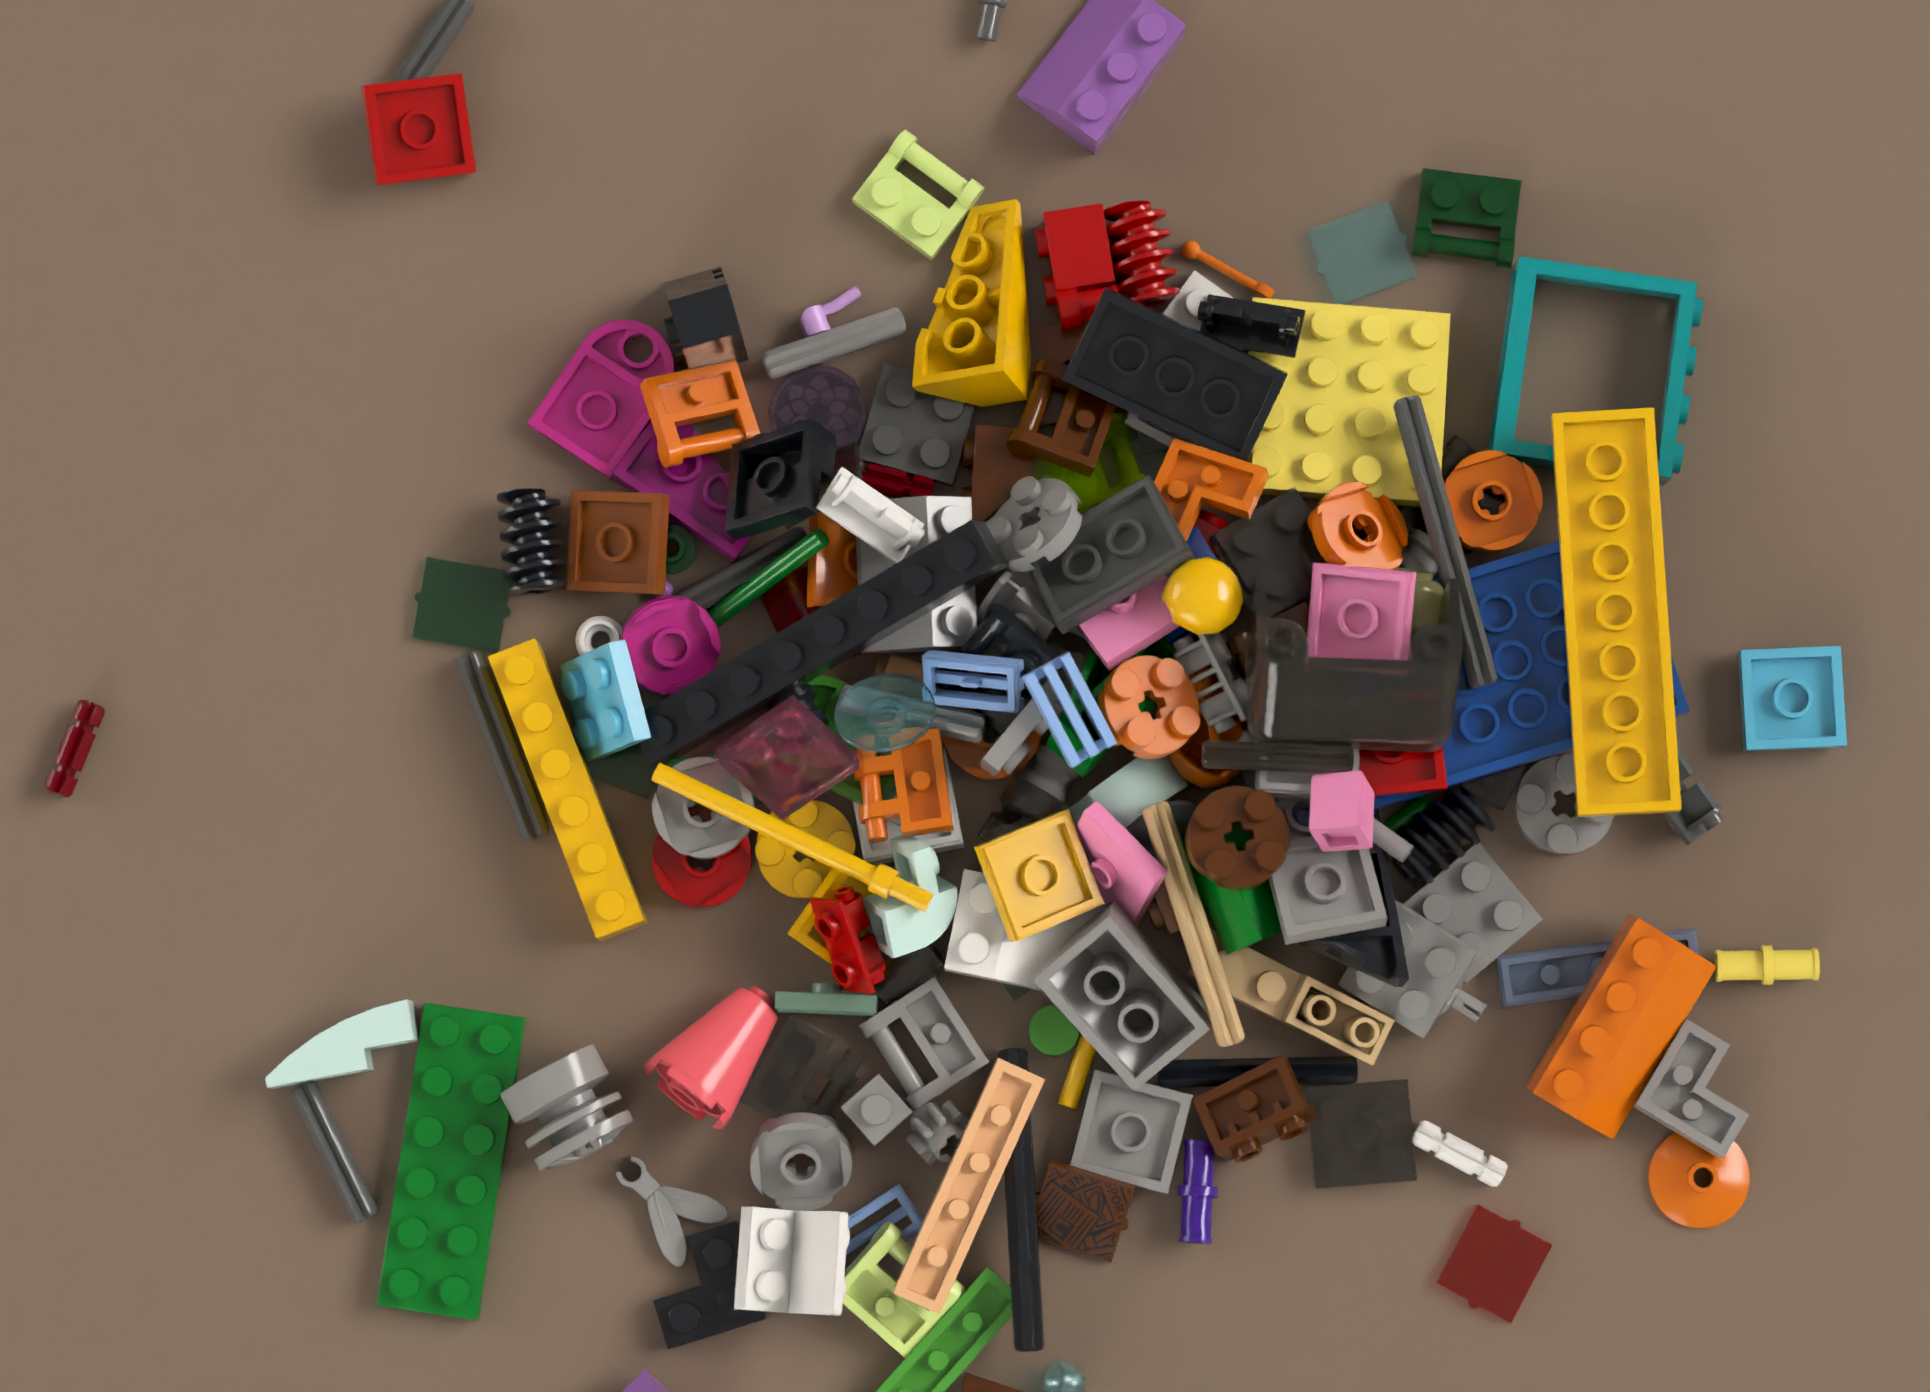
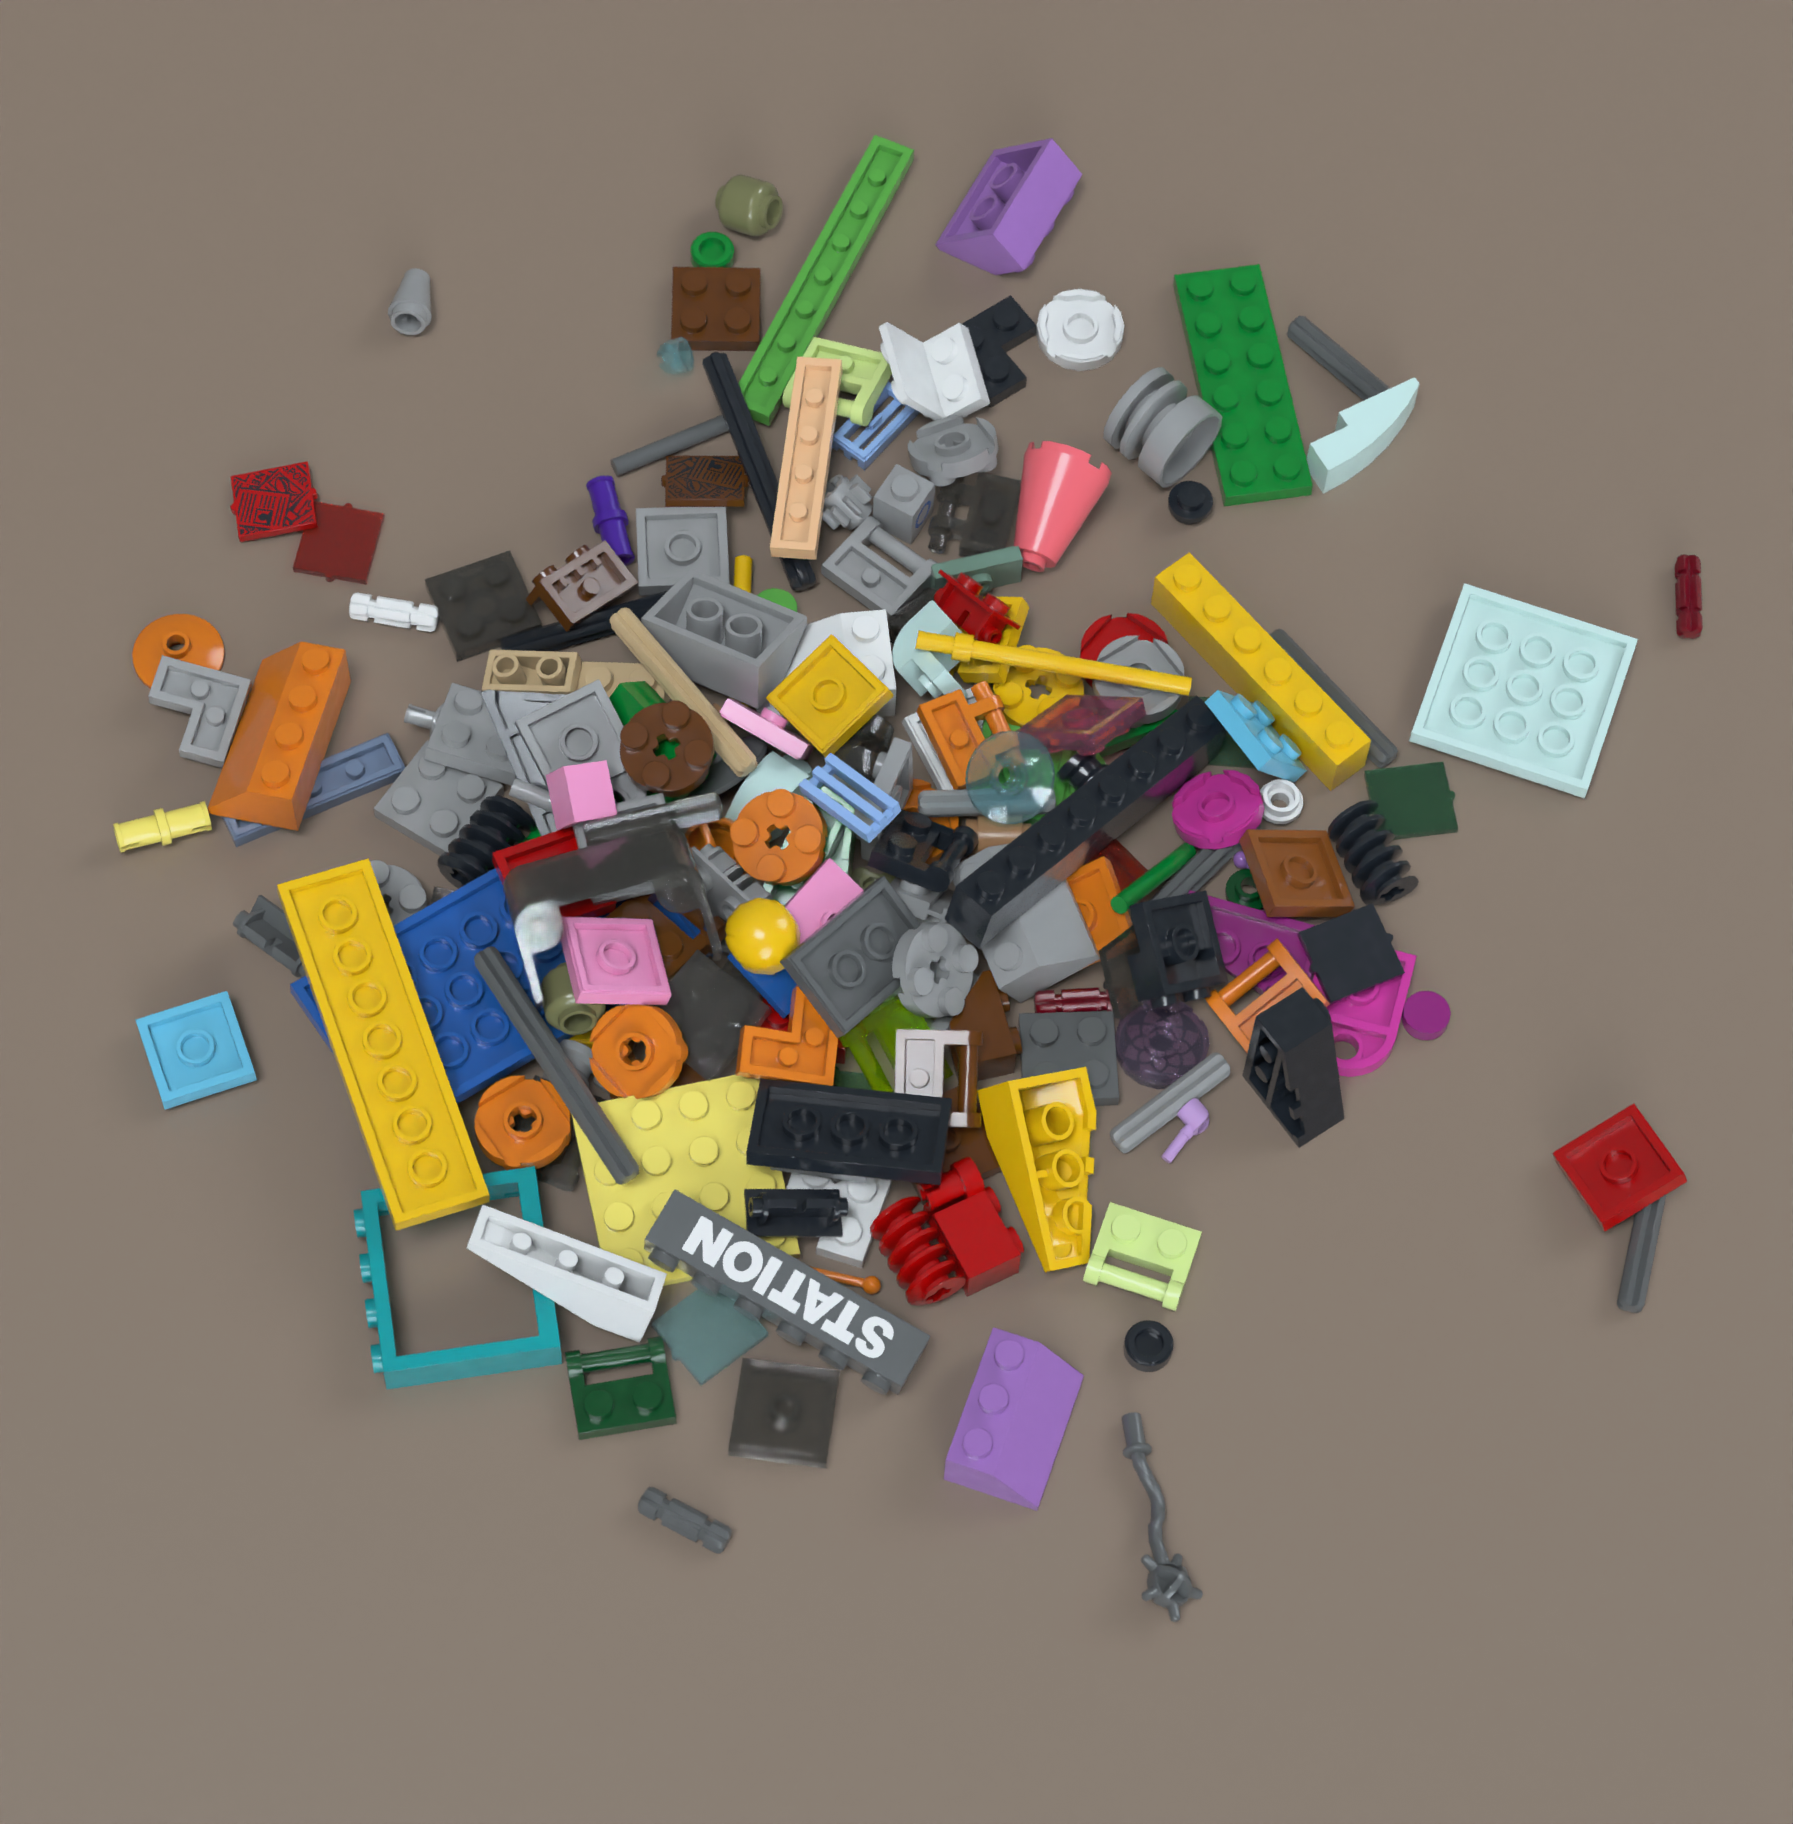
camera: 160 degrees right, 20 degrees down
(296, 688) = (1523, 690): none -> light aqua plate
(541, 360) = (1426, 1015): none -> magenta tile
(563, 1026) = (1190, 502): none -> black plate
(595, 438) = (1351, 953): none -> black piece
(604, 1286) = (1080, 330): none -> white tile
(666, 1204) = (1051, 401): light grey piece -> none
(870, 516) = (1081, 925): white hinge -> none
(943, 105) = (1148, 1346): none -> black tile
(980, 663) = (943, 826): light blue tile -> none
(1106, 1274) = (669, 445): none -> dark grey bar
(1285, 245) = (786, 1293): none -> dark grey brick
(1316, 145) = (784, 1413): none -> clear smoke plate
(1443, 68) = (684, 1520): none -> dark grey axle
(1494, 323) = (576, 1275): none -> white slope
(1552, 1334) = (274, 501): none -> red piece

